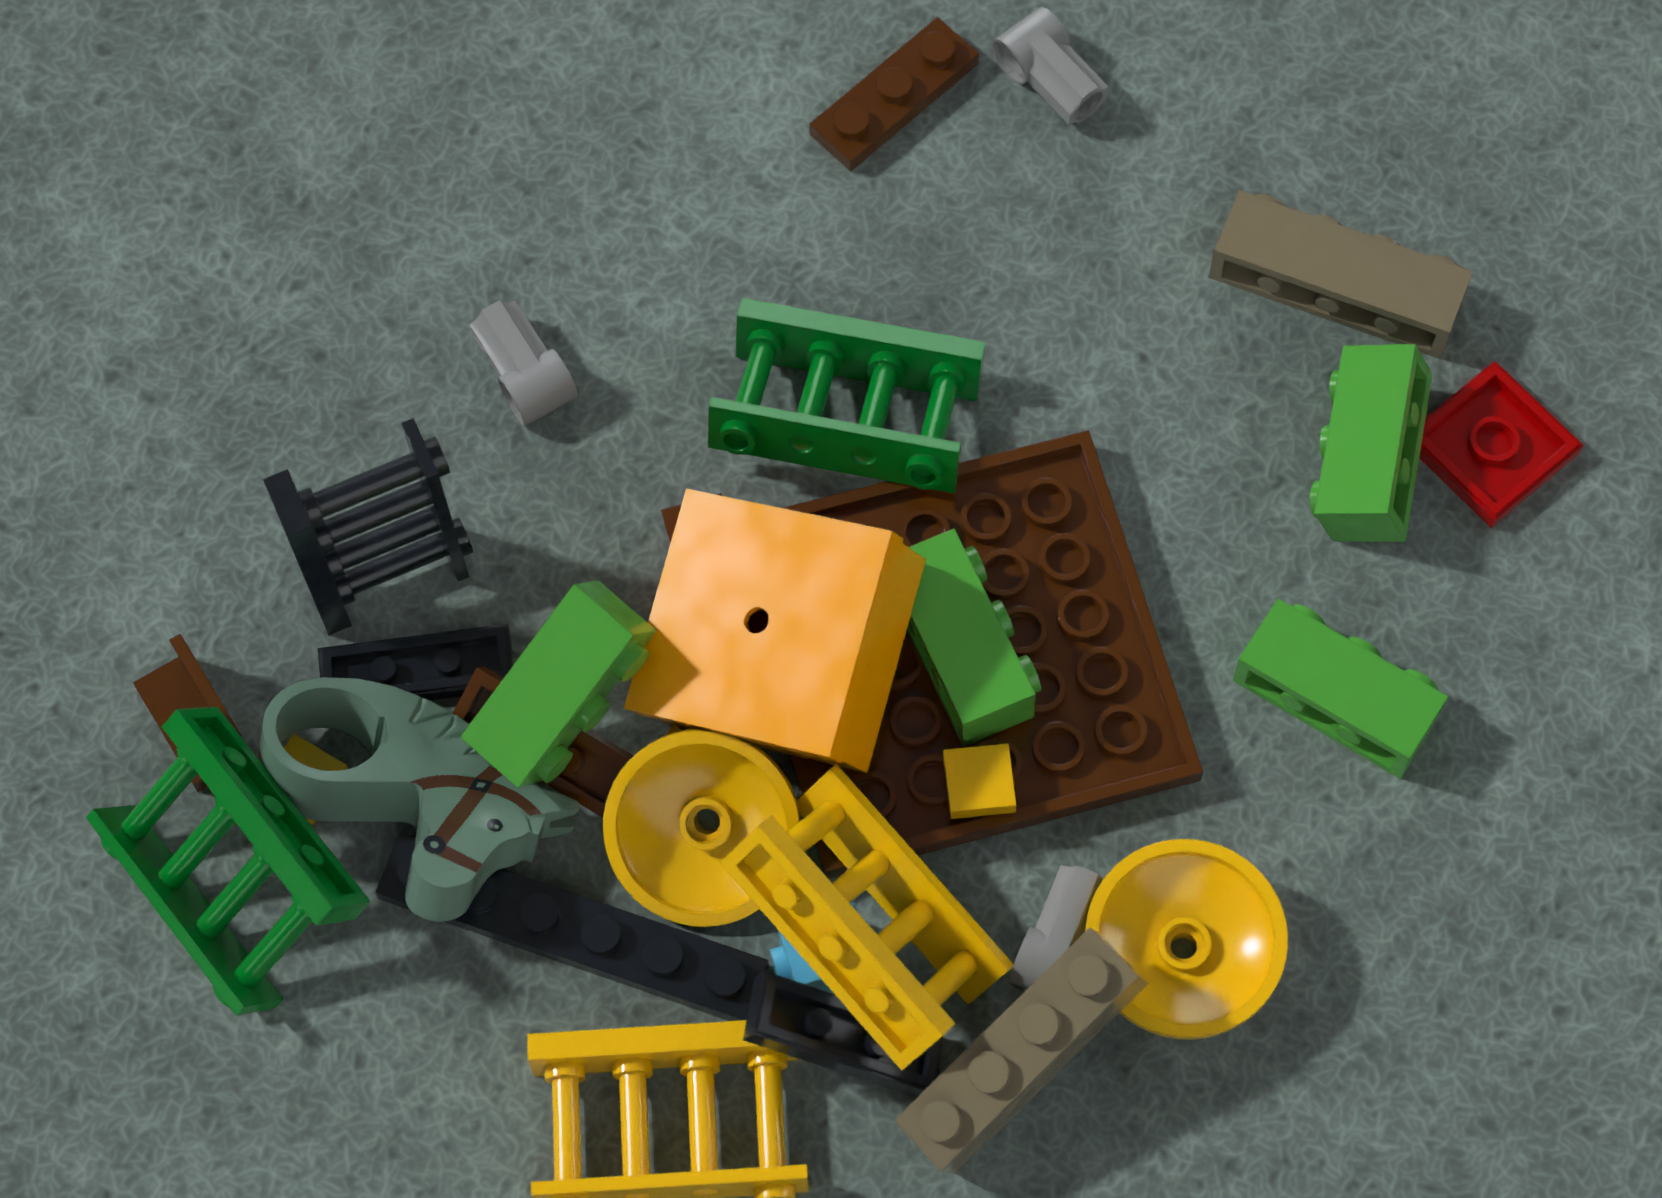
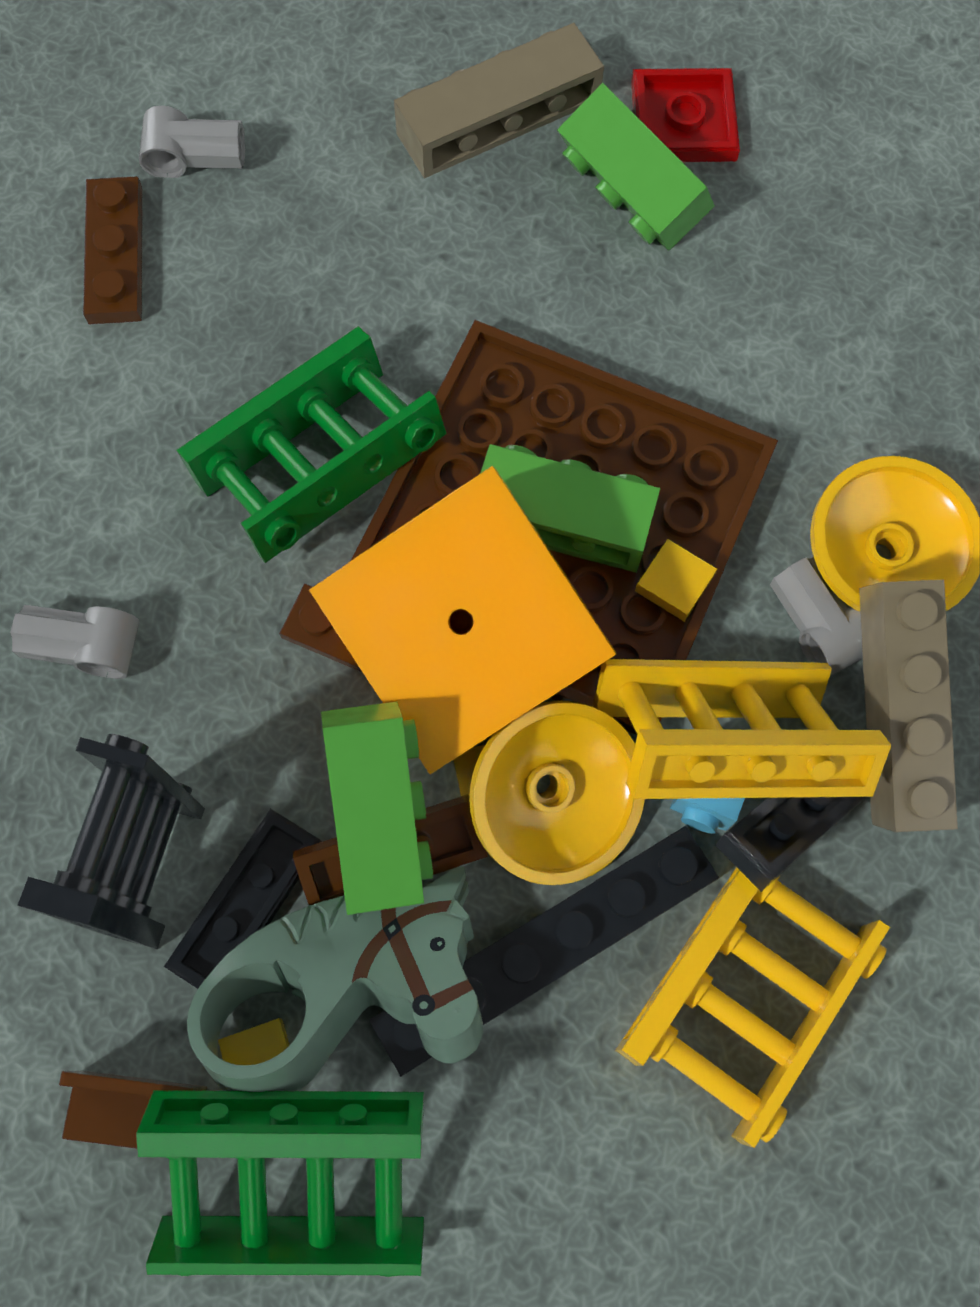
camera: 55 degrees left, 5 degrees up
(1340, 687) = (784, 317): bright green brick -> none

